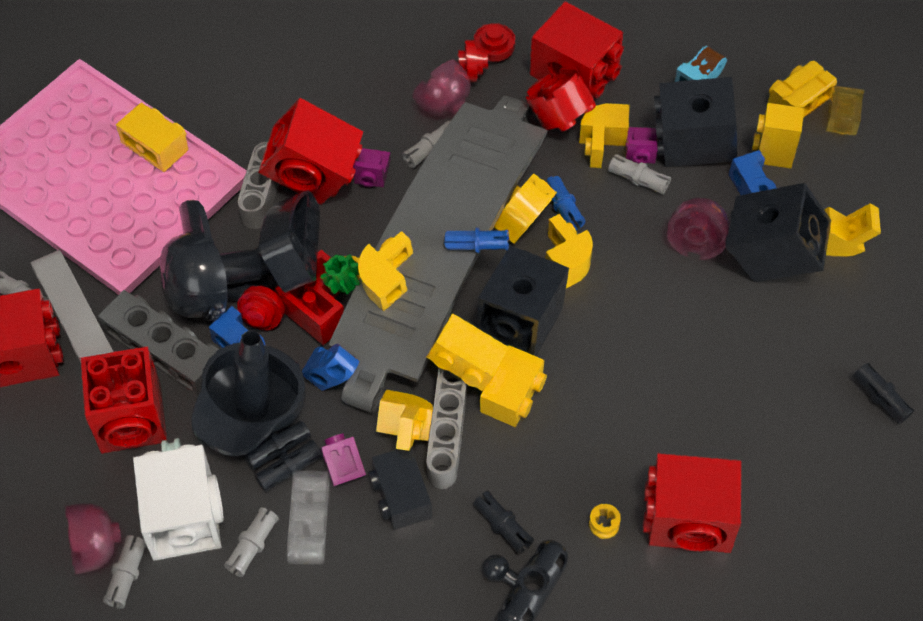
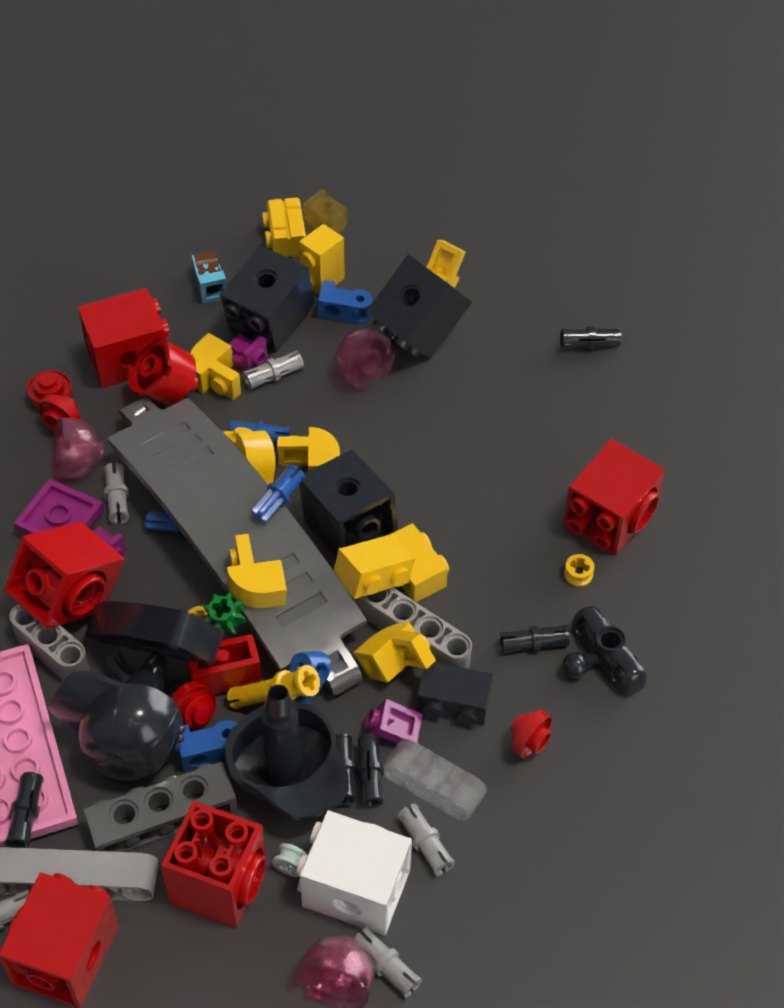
camera: 60 degrees left, 5 degrees down
(82, 263) = (24, 810): none -> black pin
(307, 350) = (302, 682): none -> yellow pin
(382, 120) = (56, 507): none -> magenta plate
(396, 566) = (531, 733): none -> red plate

